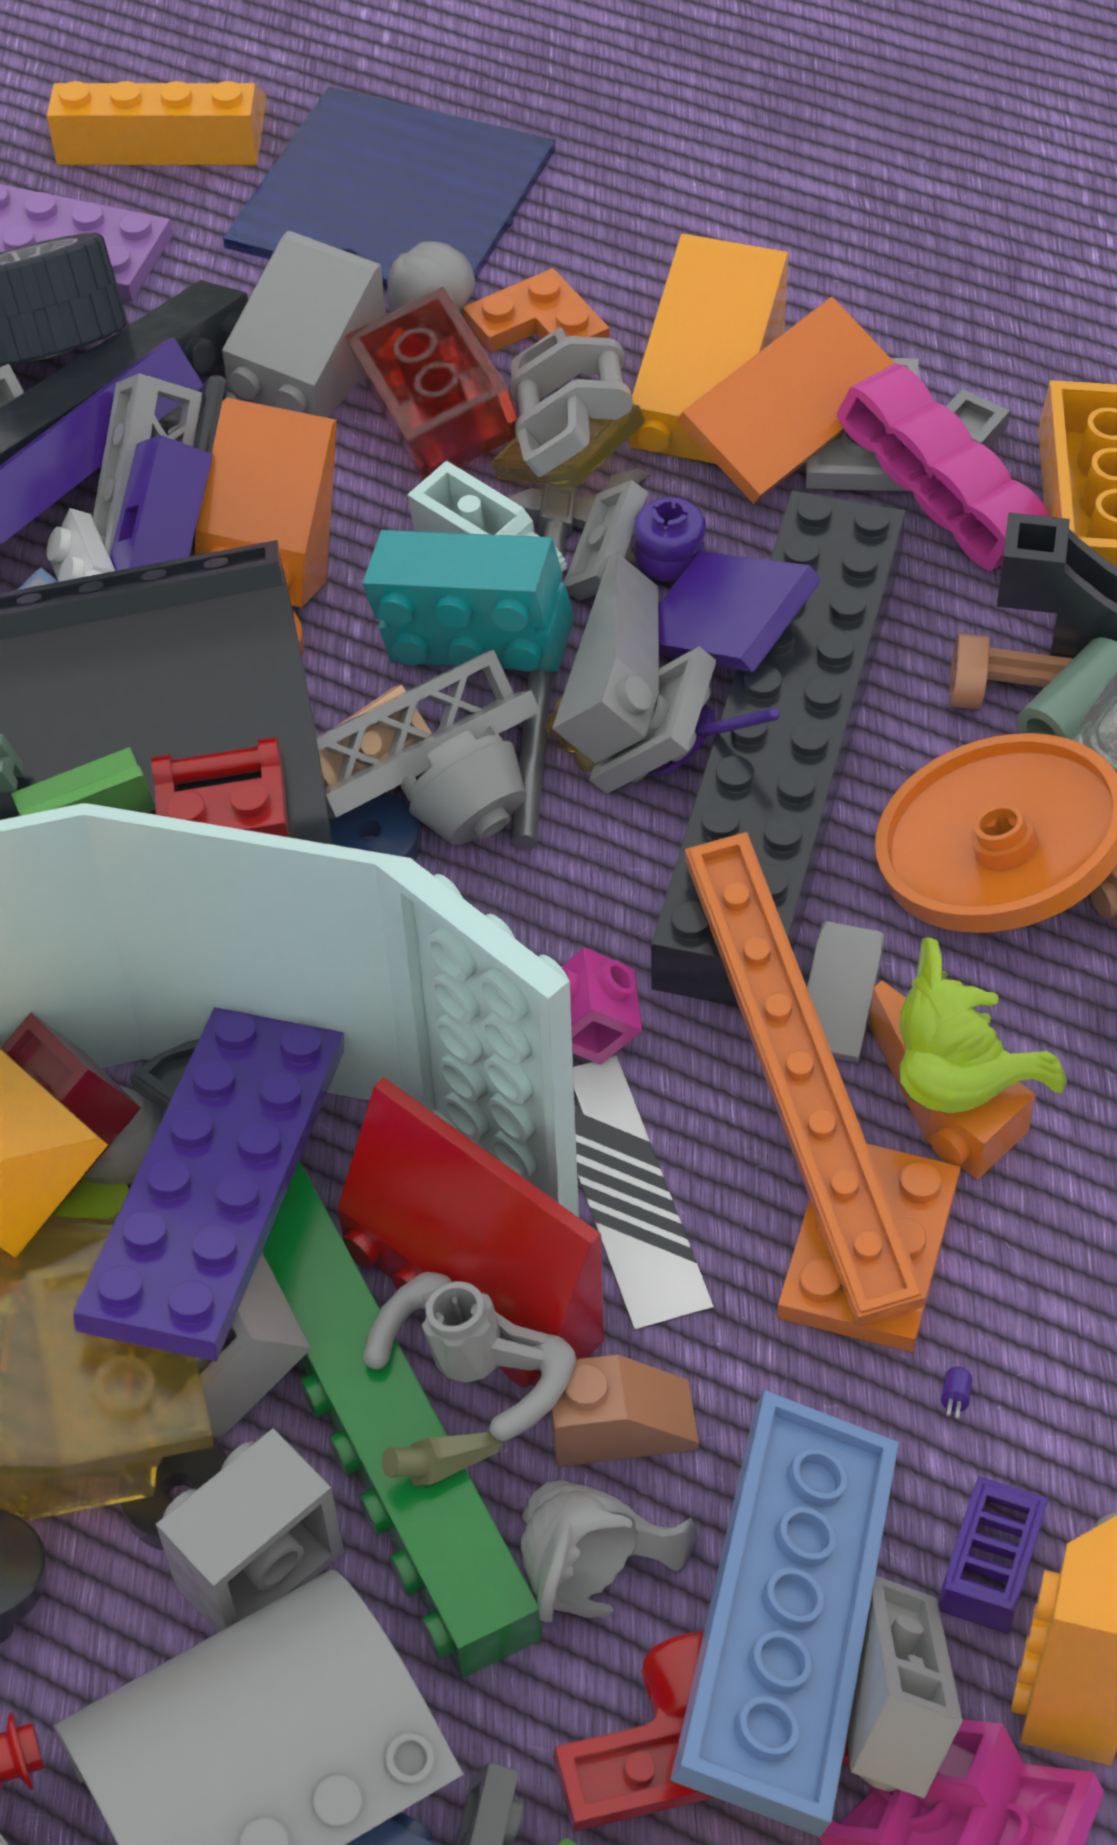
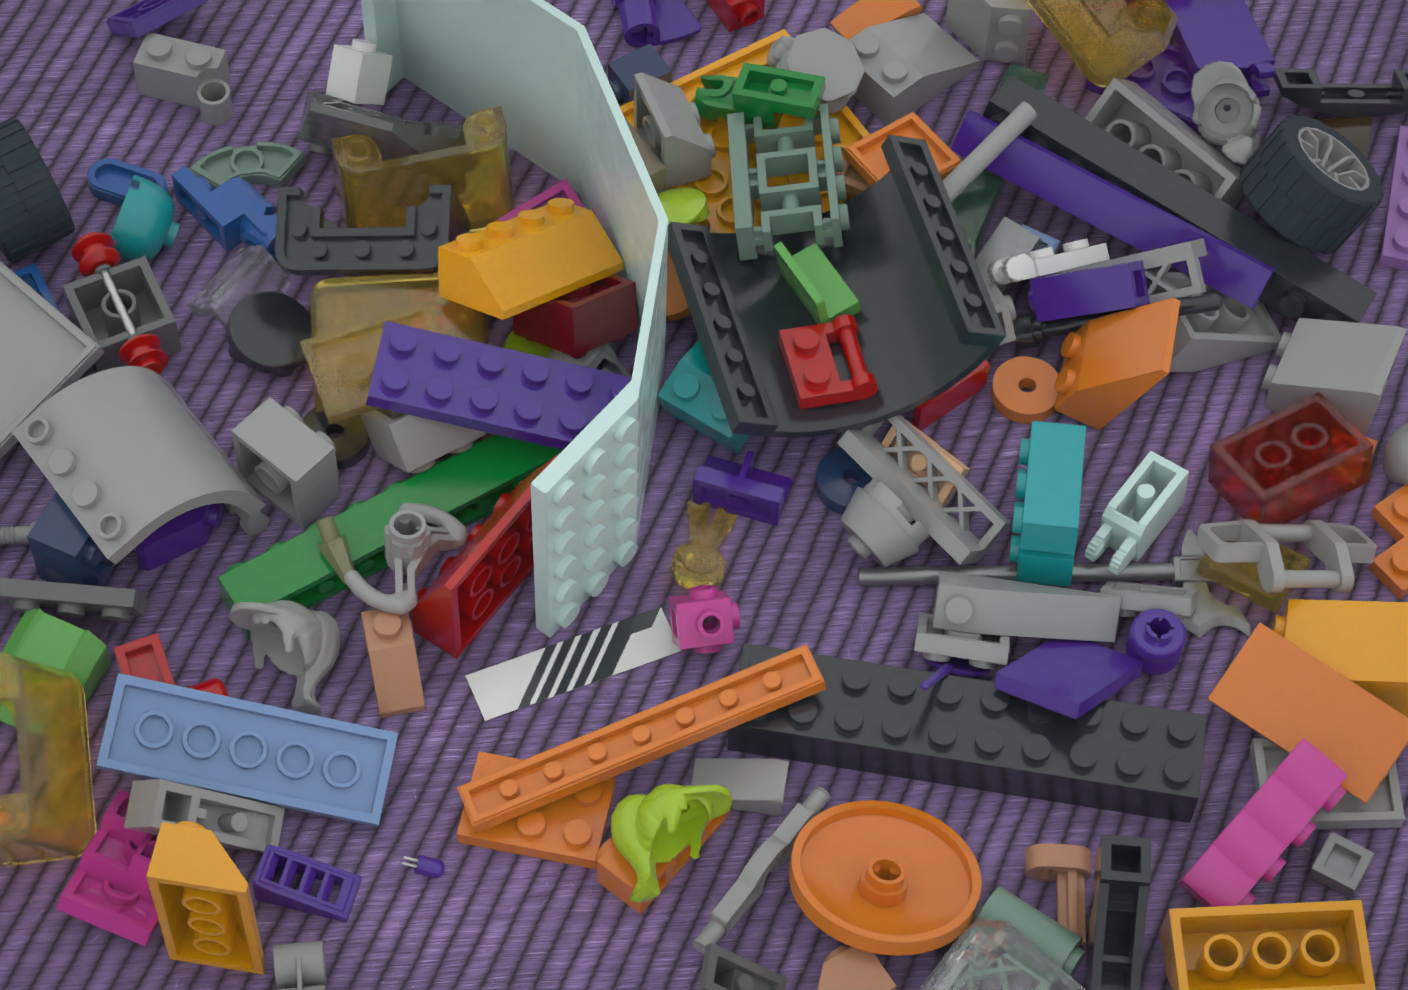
camera: 80 degrees right, 5 degrees up
(1019, 1000) = (768, 858): none -> light grey piece

